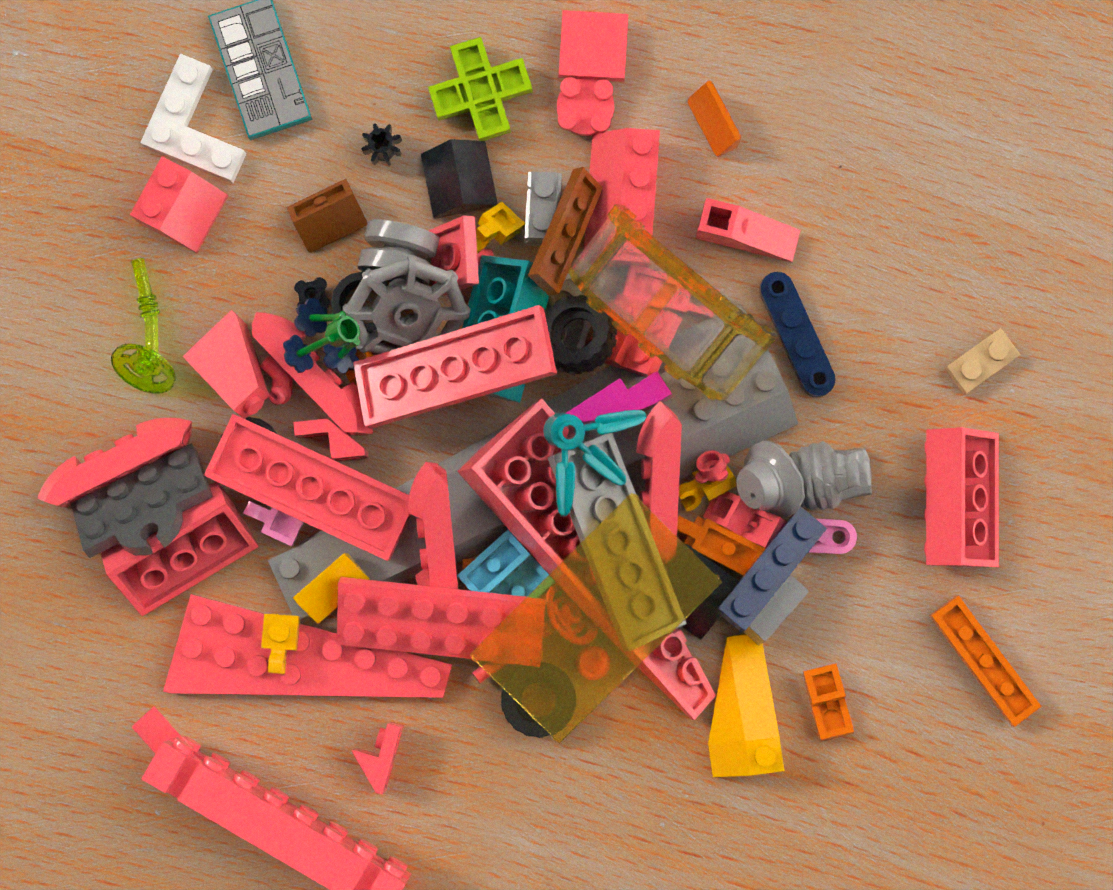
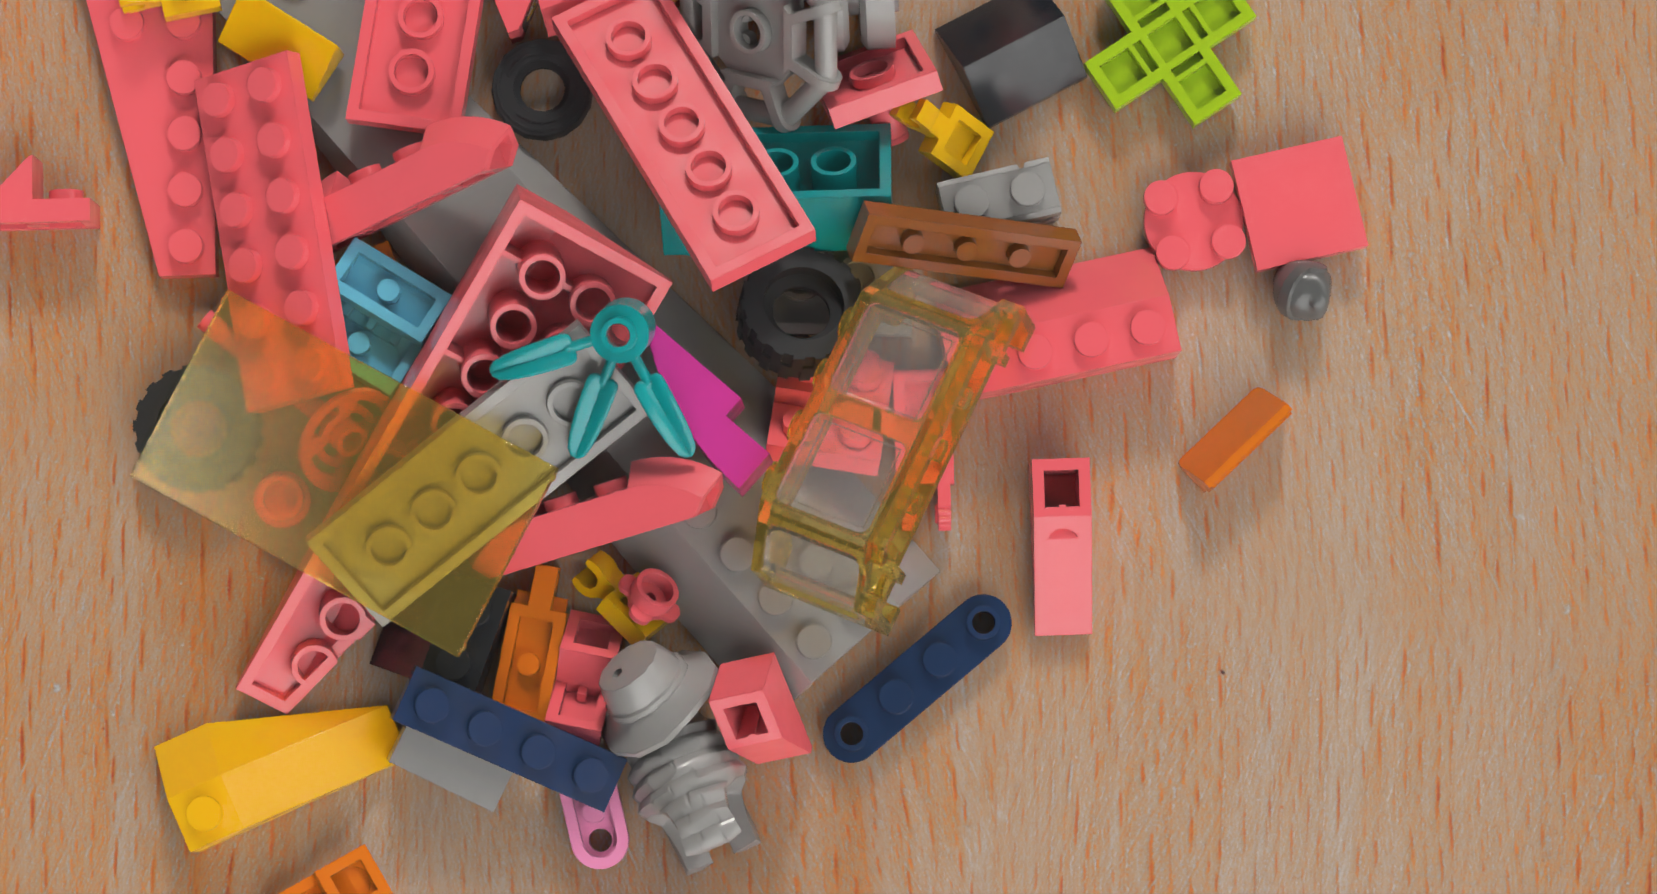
camera: 70 degrees right, 0 degrees up
(405, 467) = (507, 87): none -> black tyre
(642, 57) = (1302, 290): none -> dark grey piece
(793, 424) = (757, 710): none -> coral slope

